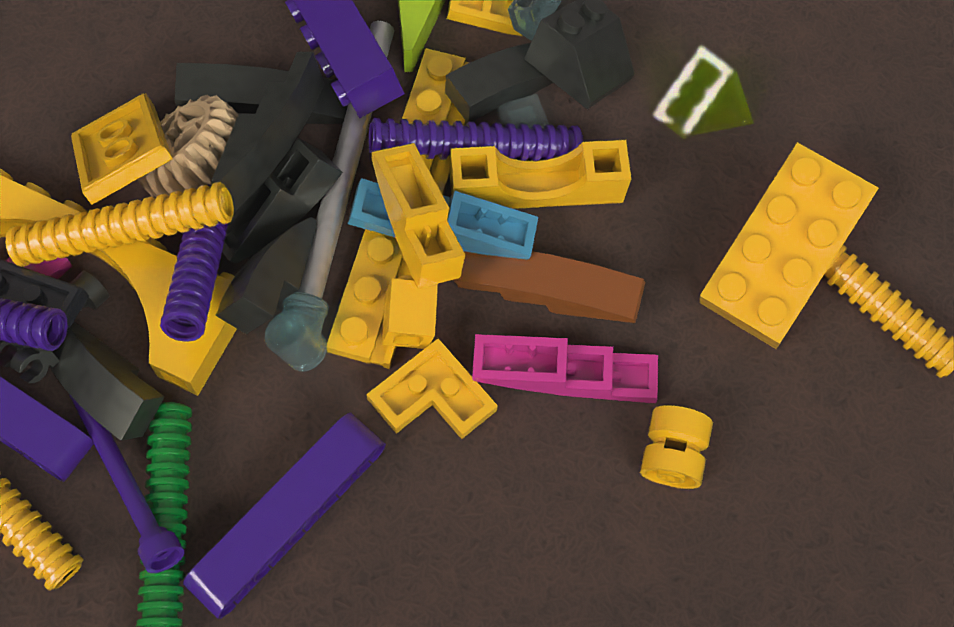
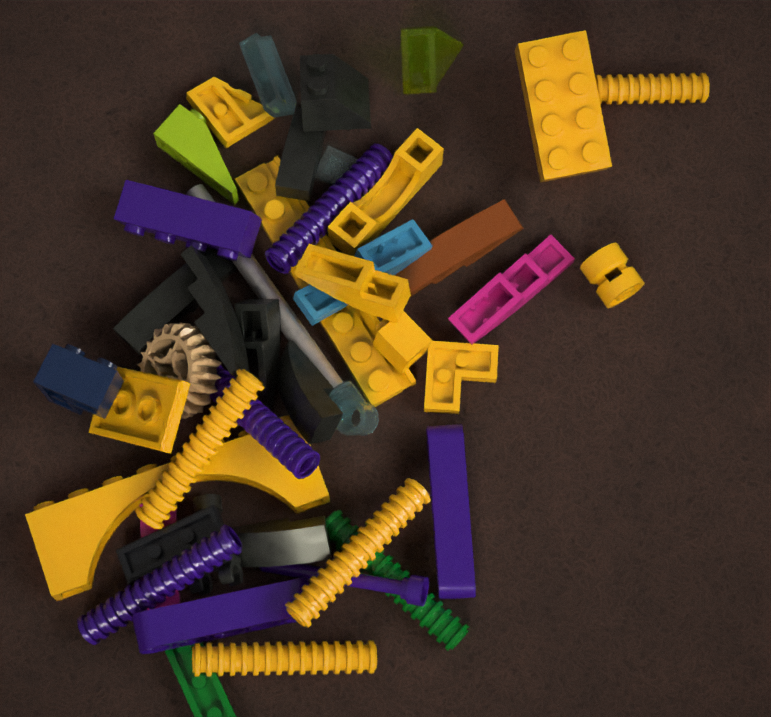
camera: 40 degrees left, 5 degrees up
(94, 73) = (77, 381): none -> dark blue brick
(145, 459) = (357, 553): none -> yellow piece

